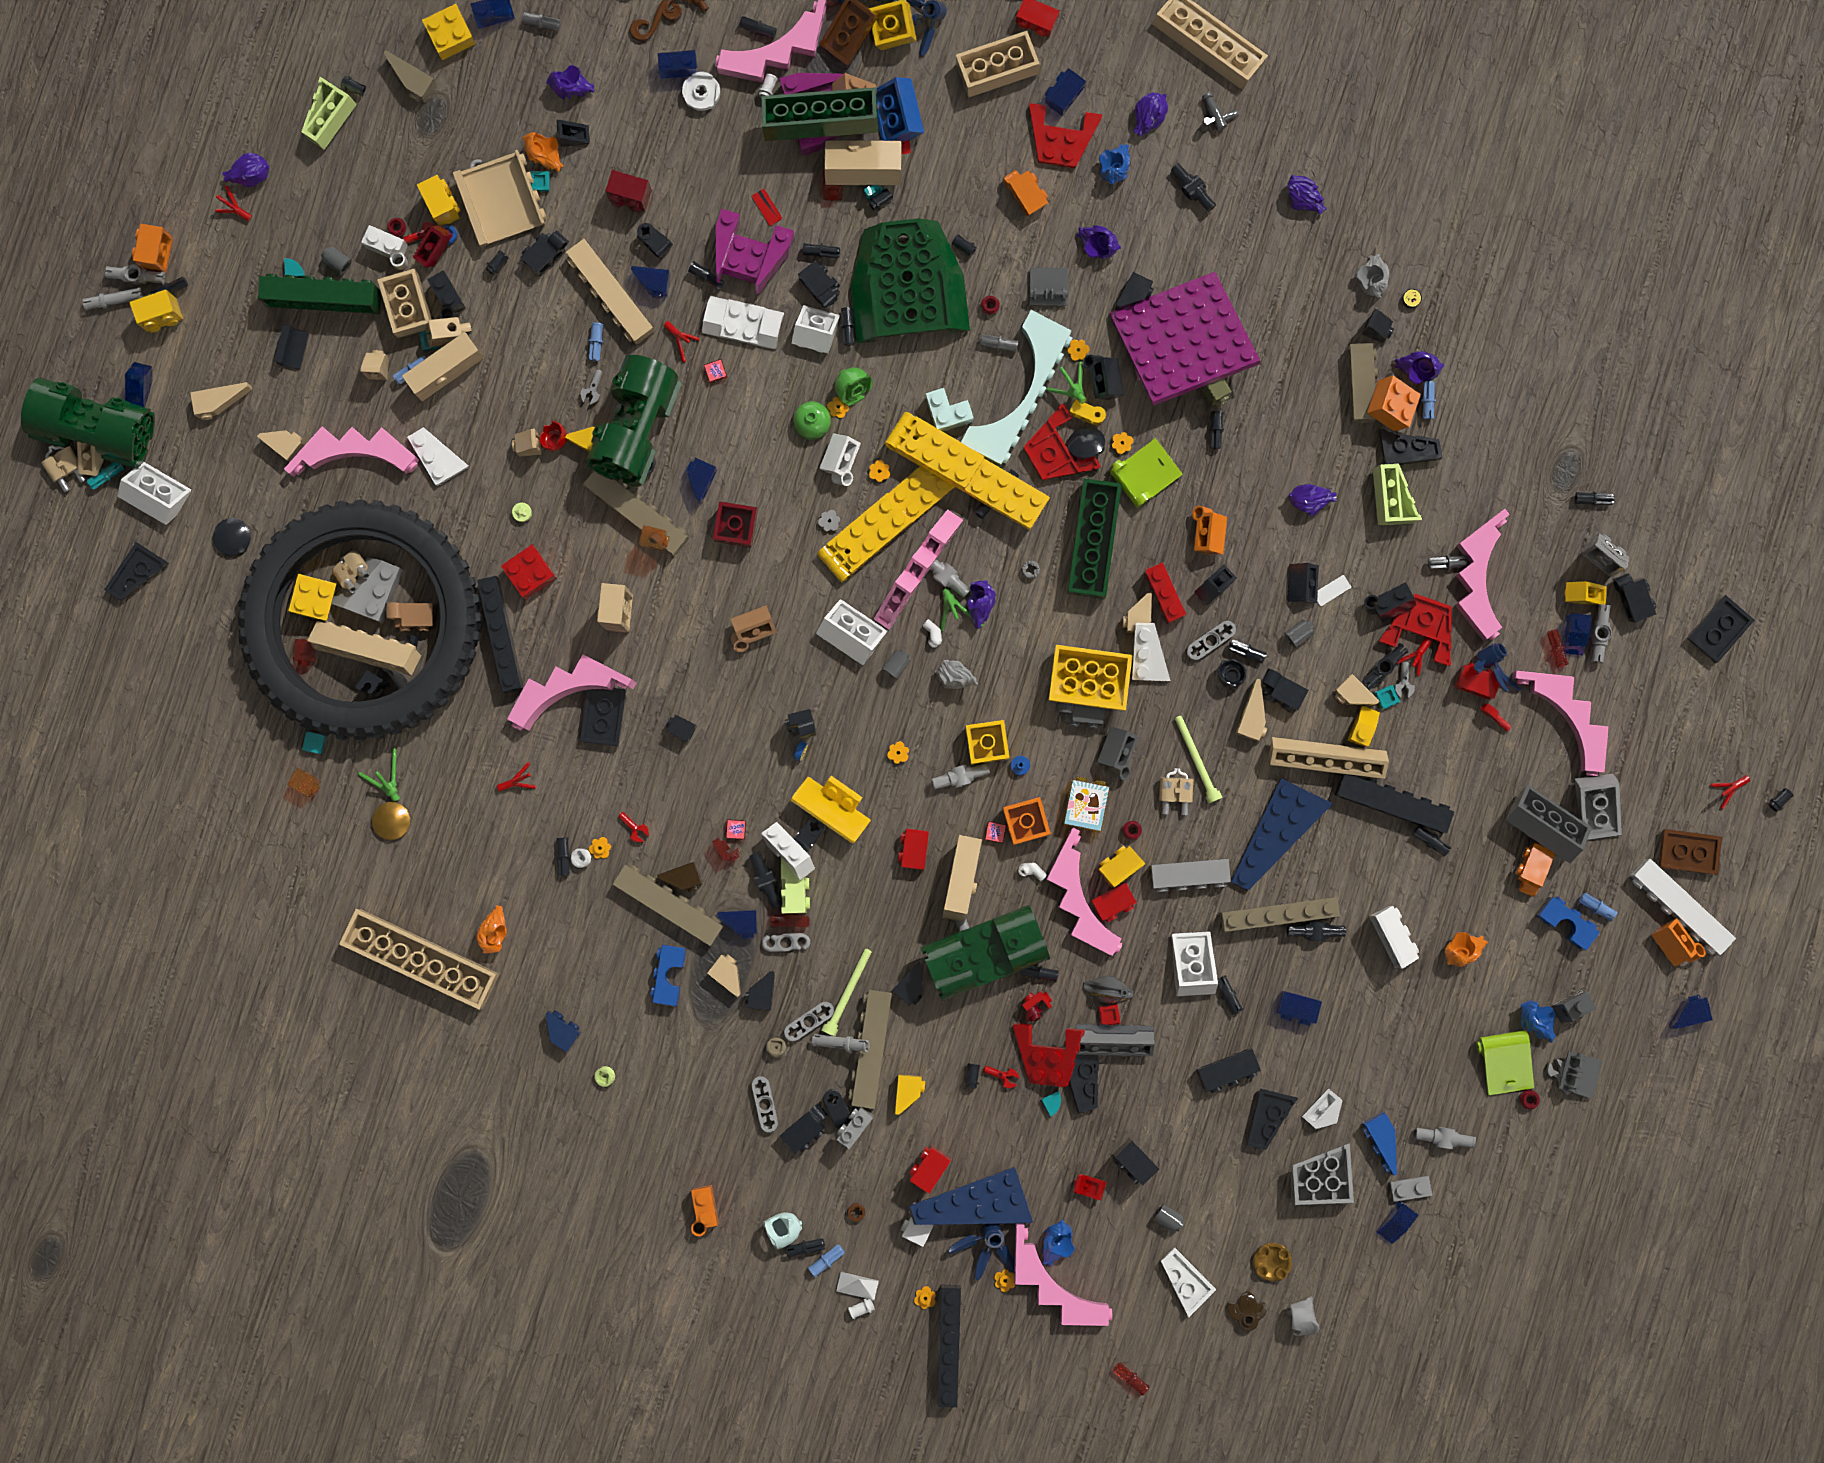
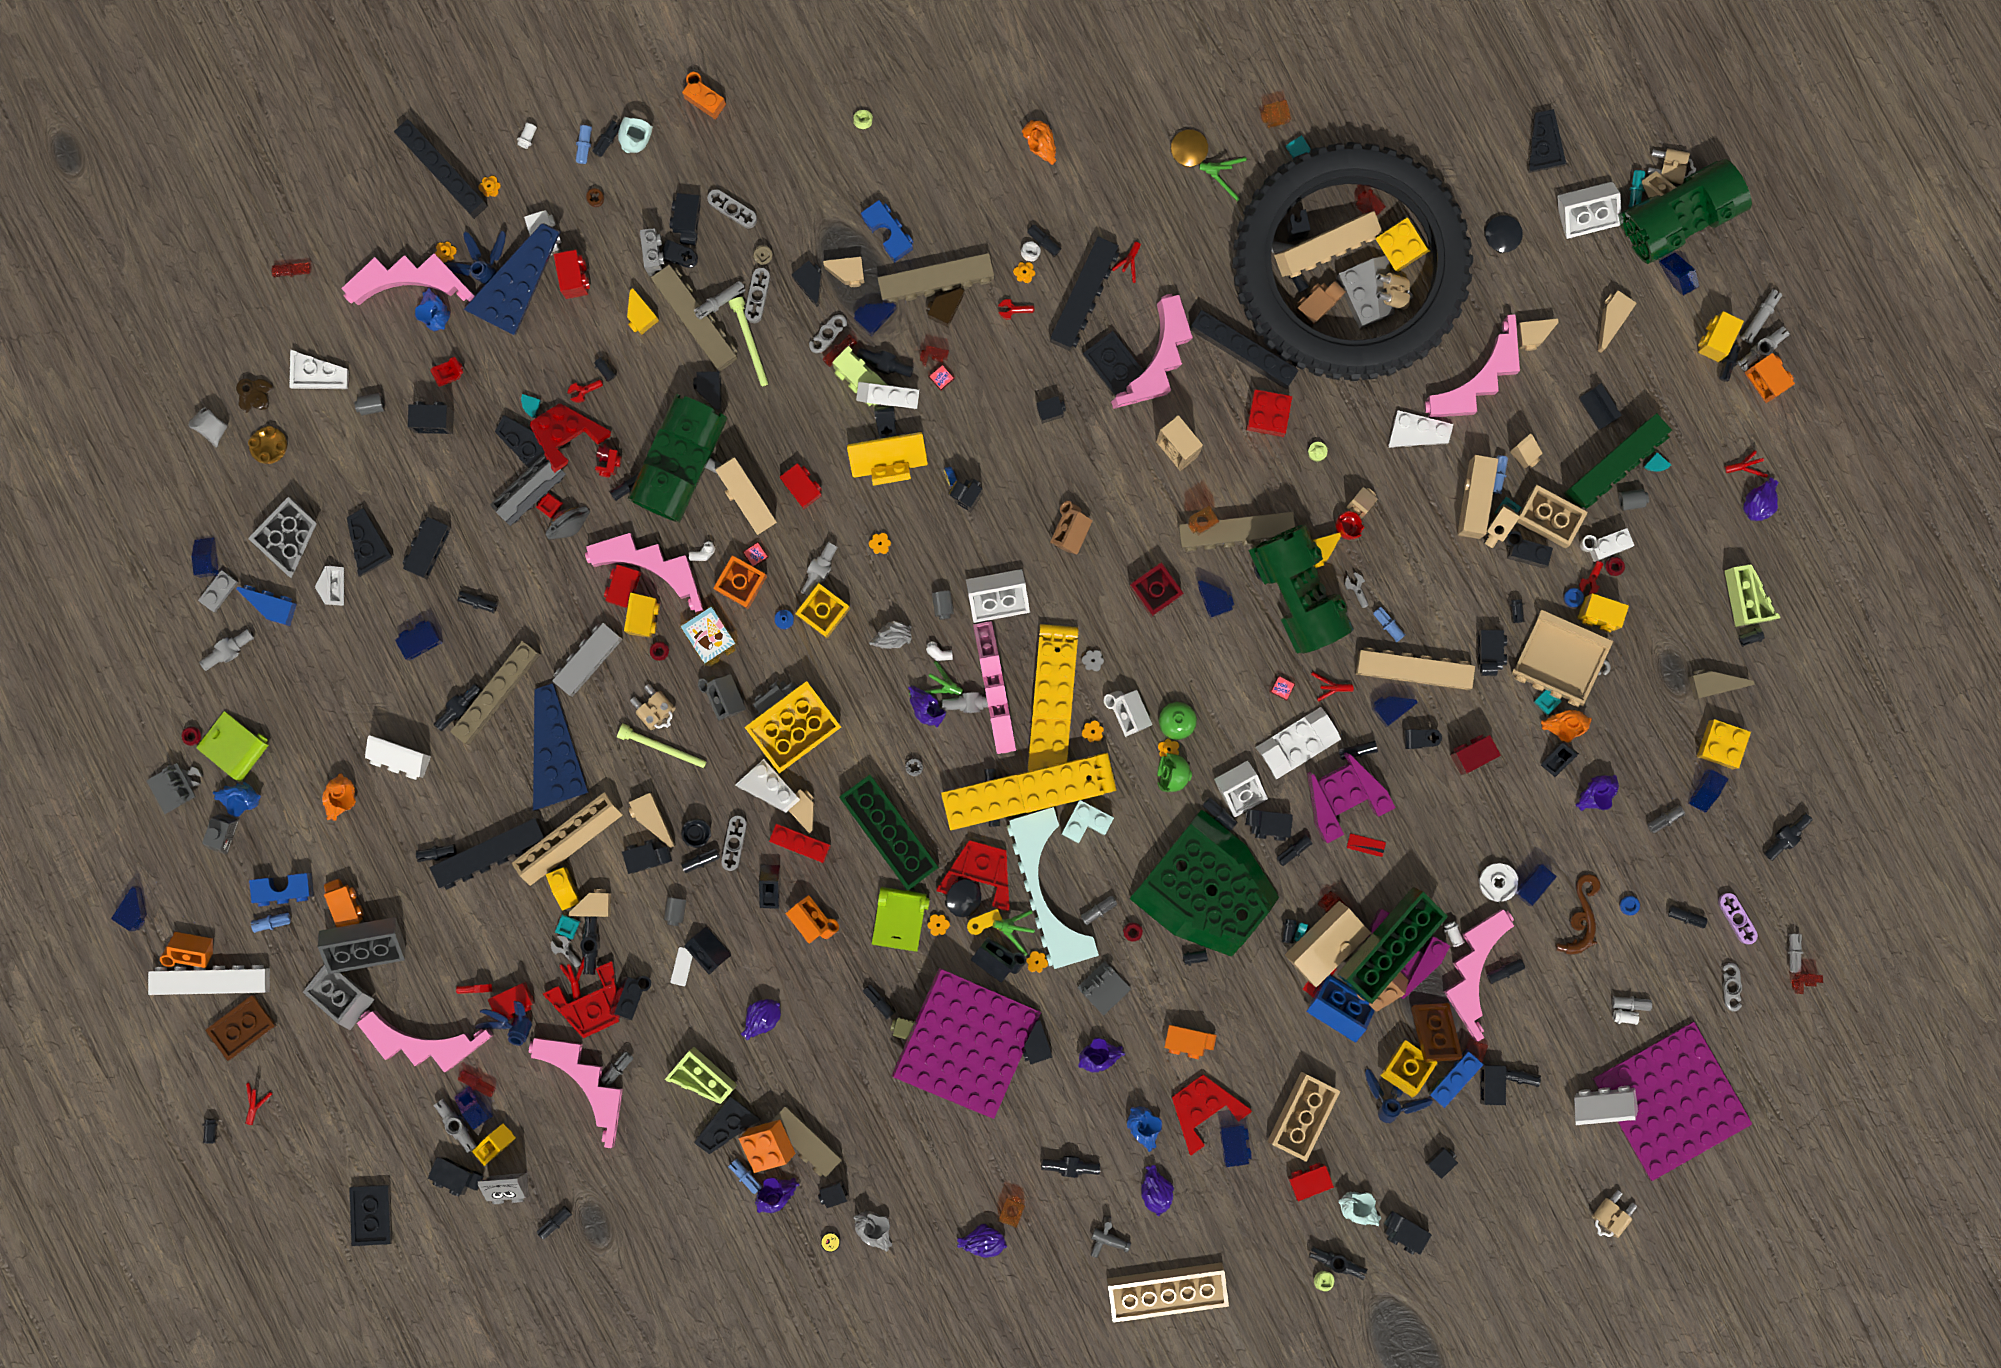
camera: 135 degrees right, 0 degrees up
(419, 959) = (1072, 72): tan brick -> none
(432, 246) = (1574, 575): dark red brick -> none
(561, 1032) = (923, 119): dark blue slope -> none
(573, 788) = (1084, 293): none -> black brick
(857, 1285) = (545, 149): white slope -> none
(1194, 964) = (523, 599): white slope -> none
(1268, 189) = (1009, 1219): none -> clear orange brick

